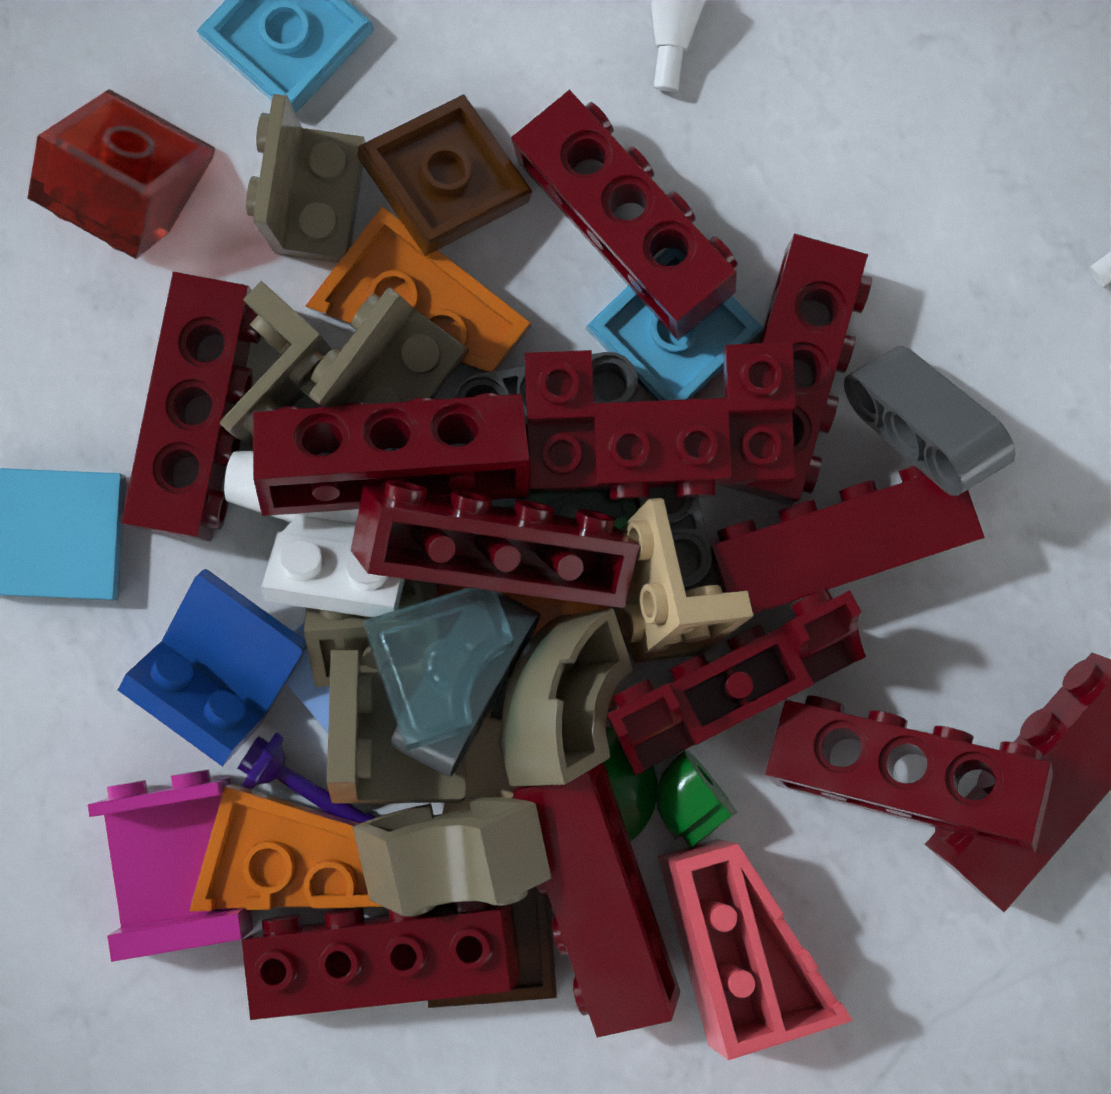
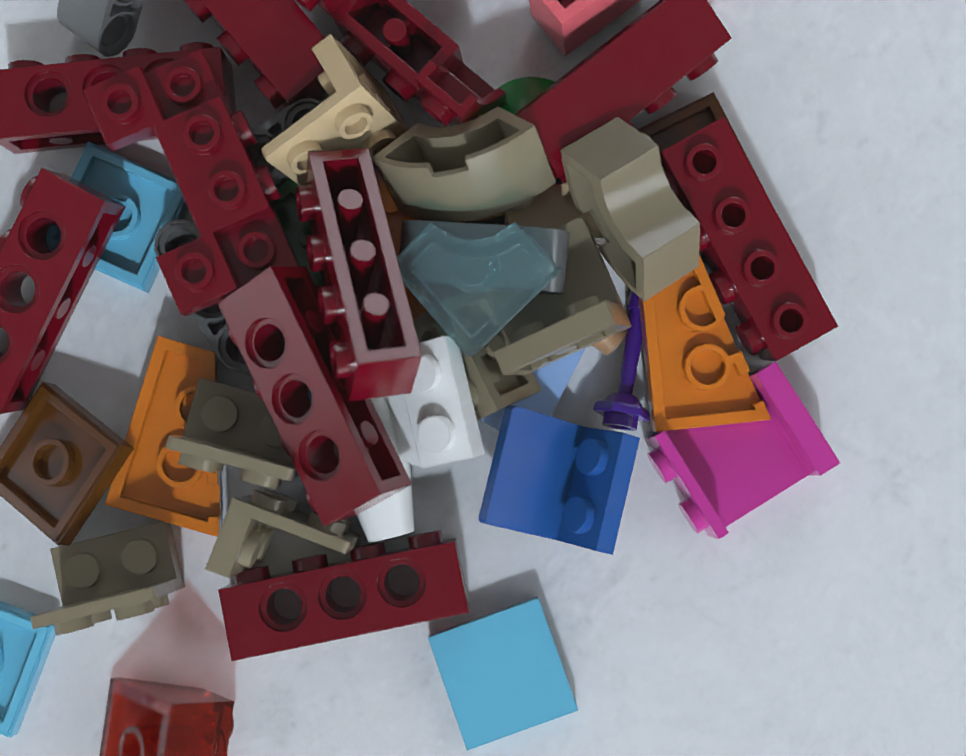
camera: 110 degrees left, 0 degrees up
(691, 800) = (510, 45): green piece -> none

